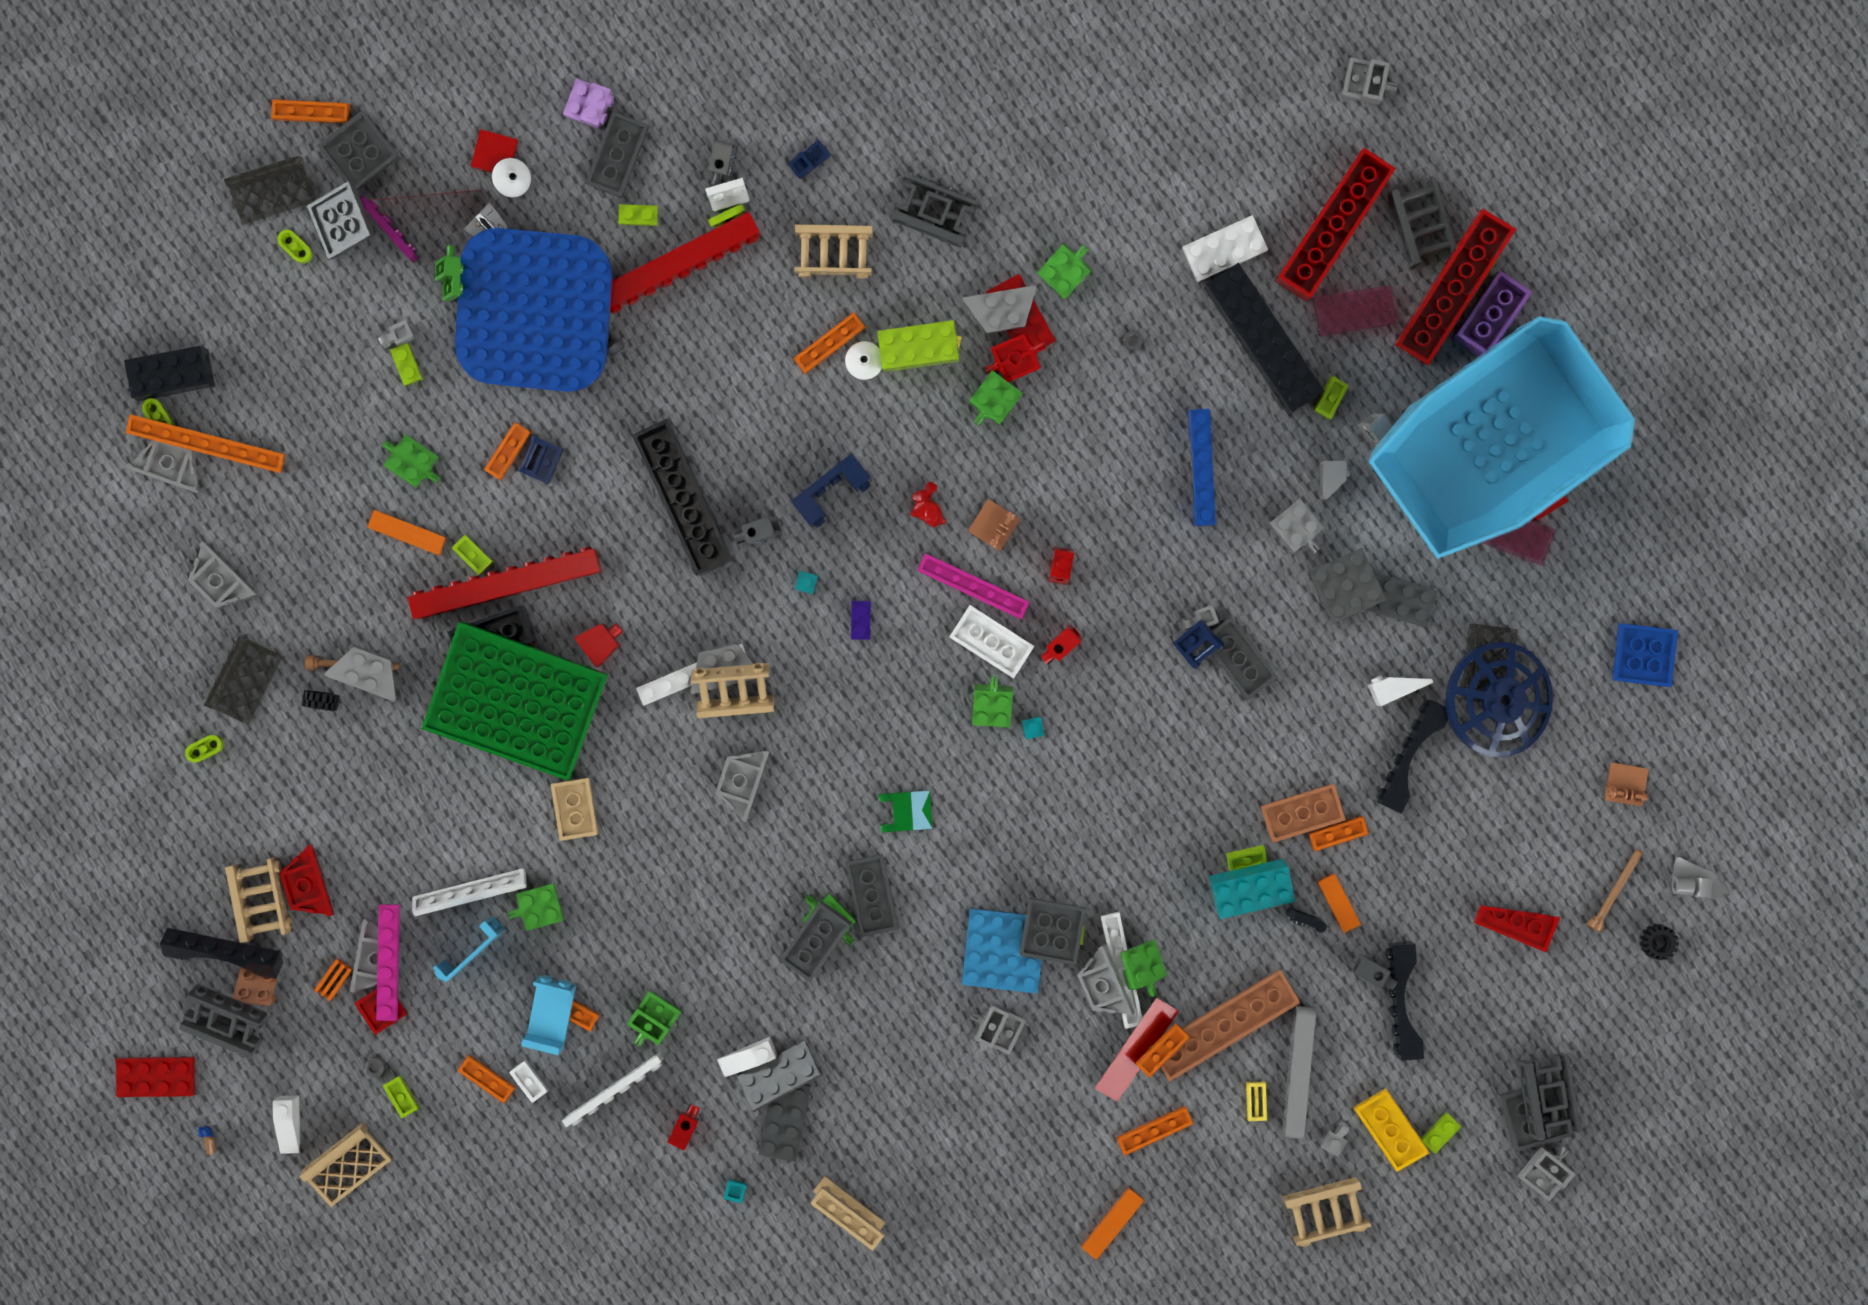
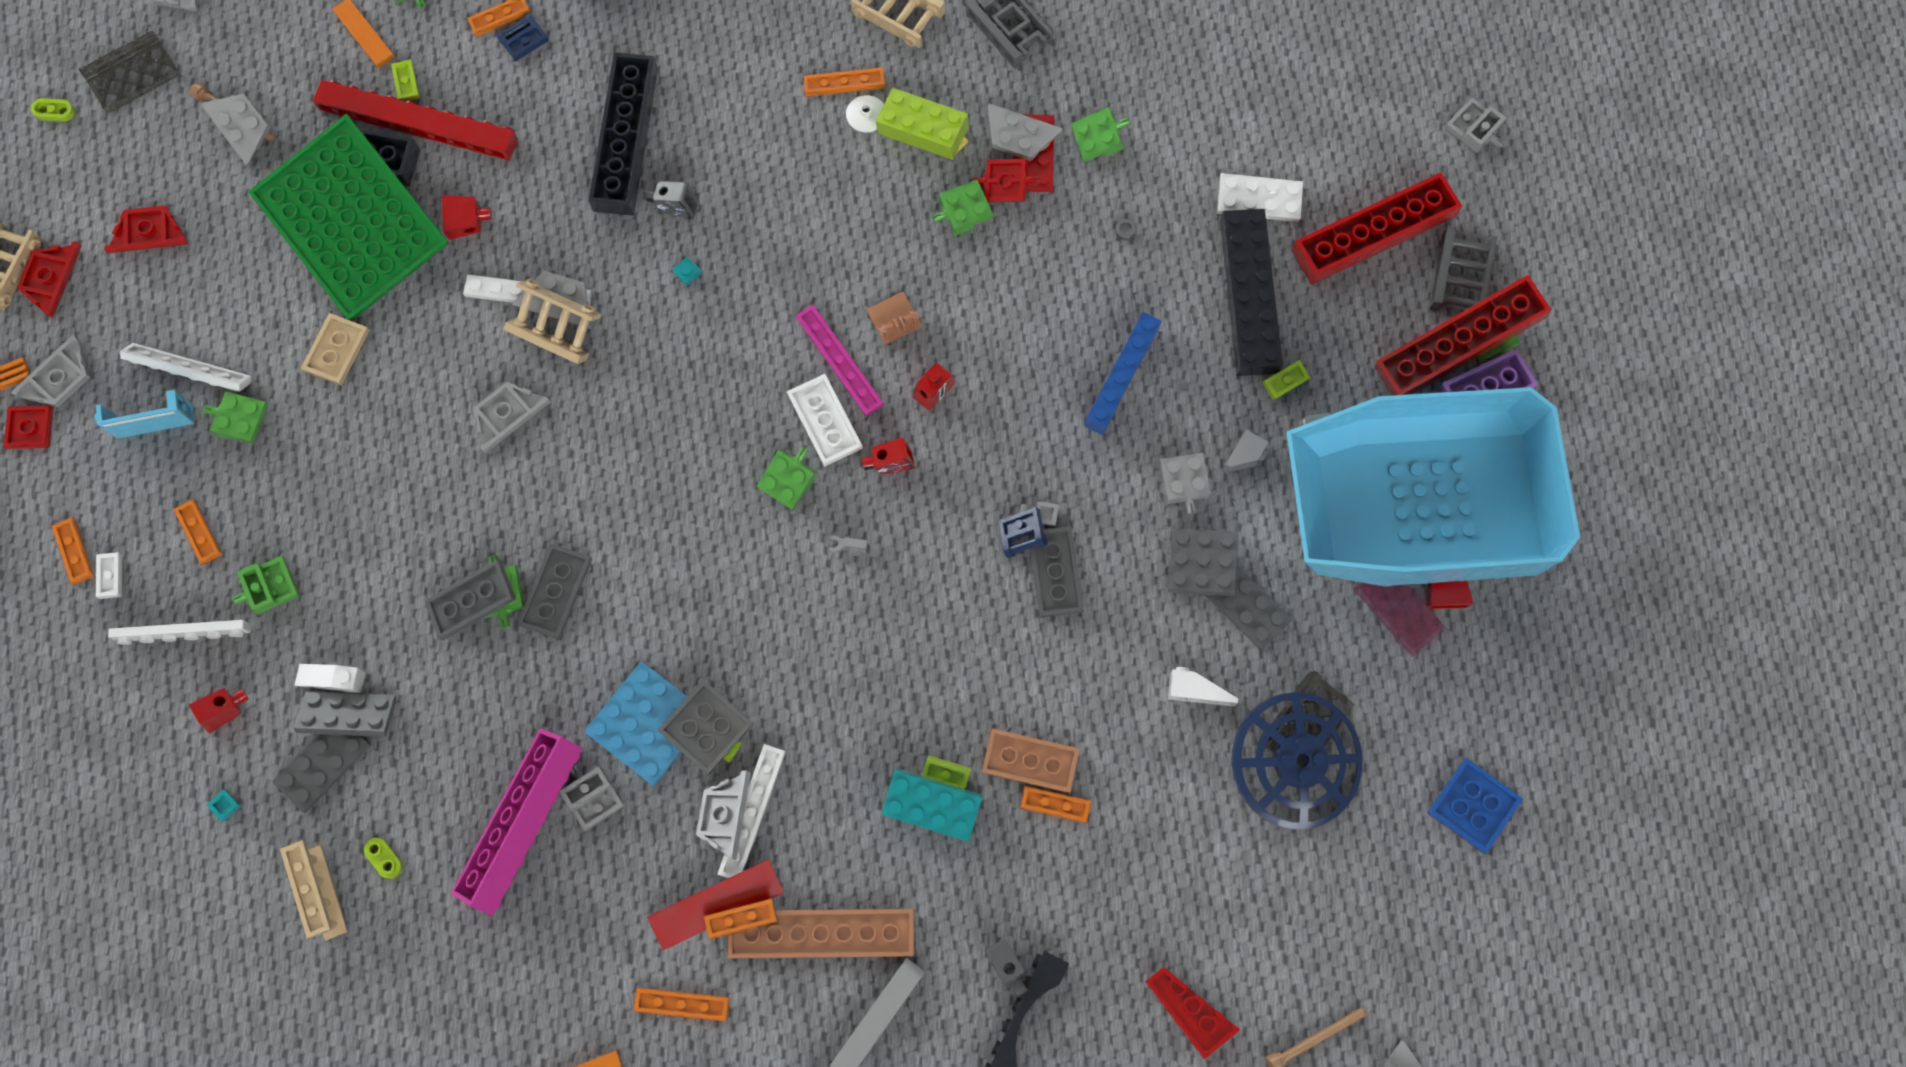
camera: 30 degrees right, 15 degrees down
(320, 700) = (181, 123): black tyre -> none
(355, 802) = (145, 230): none -> red wing
(388, 962) = (64, 385): dark pink plate -> none
(549, 1015) = (174, 522): medium azure panel -> none
(852, 472) = (758, 188): dark blue plate -> none
(860, 620) = (714, 332): dark purple plate -> none
(876, 1156) = (383, 857): none -> lime plate
(910, 811) = (644, 534): green flag -> none
(925, 508) = (839, 266): red animal -> none
(959, 1079) = (516, 822): none -> dark pink brick
(1033, 727) = (813, 523): teal plate -> none
(1076, 729) = (853, 546): none -> light grey plate
(1143, 966) = (774, 818): bright green plate -> none
(1256, 1101) = (816, 1019): light yellow tile -> none
(1301, 918) = (964, 863): black plate -> none
(1338, 903) = (1014, 877): orange tile -> none
(1354, 310) = (1354, 315): clear pink plate -> none
(1396, 791) = (1138, 795): black arch -> none
(1626, 784) = (1386, 930): nougat hinge -> none

